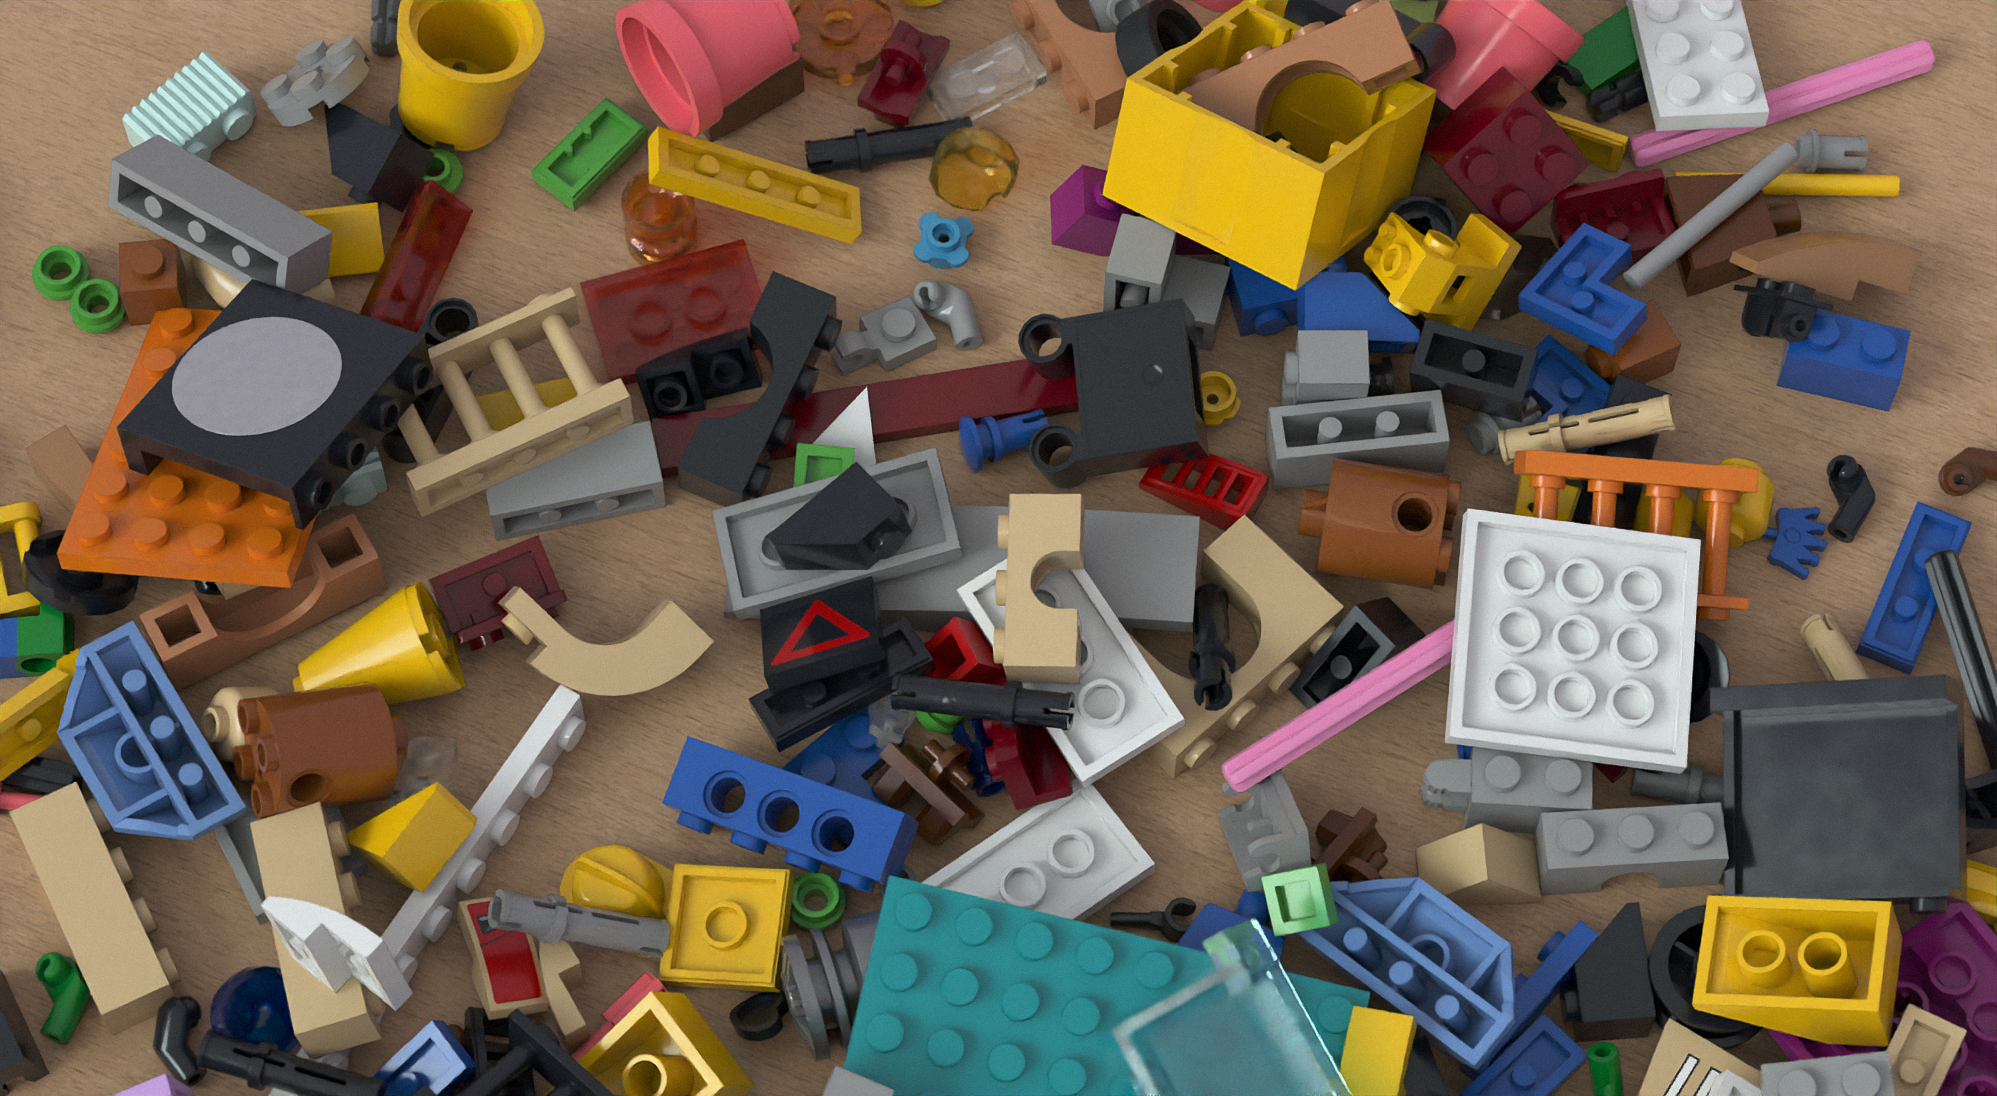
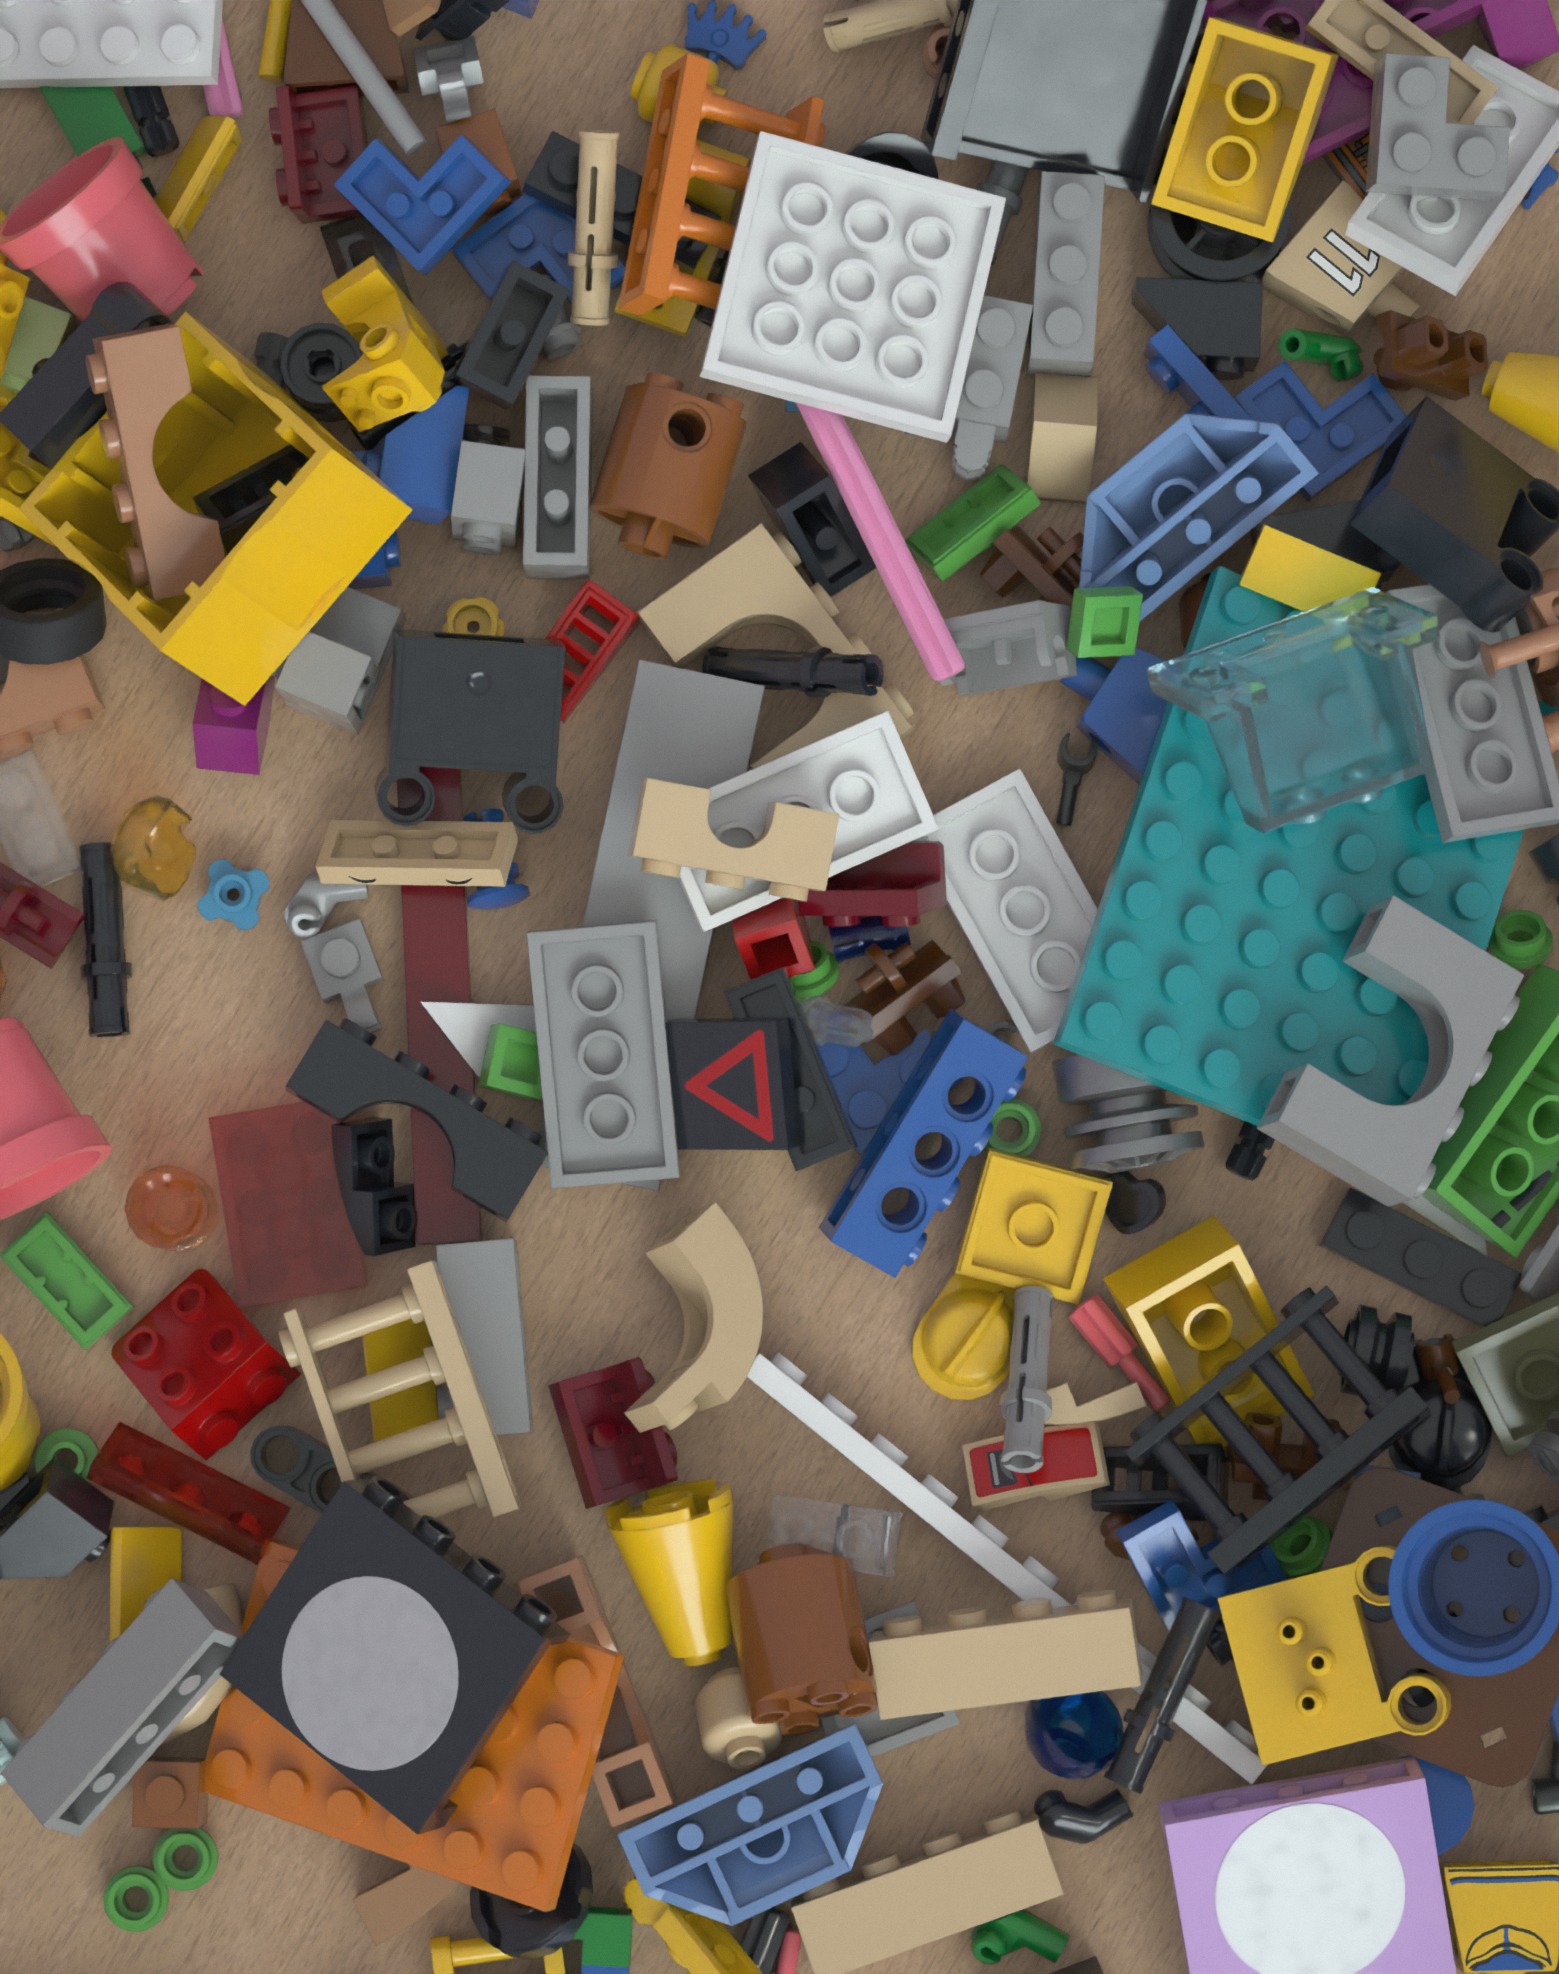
camera: 80 degrees left, 20 degrees up
(337, 948) = (1075, 1643): white slope -> none
(414, 837) = (912, 1546): yellow slope -> none
(521, 256) = (203, 1364): none -> red bracket
(754, 185) = (158, 1096): yellow plate -> none
(842, 527) = (617, 1041): black slope -> none
(984, 701) = (847, 919): black pin -> none
(997, 365) = (417, 854): none -> tan plate
(1375, 790) = (972, 522): none -> bright green plate
(1505, 152) = (241, 253): dark red brick -> none
(1708, 312) = (449, 72): none -> light grey plate

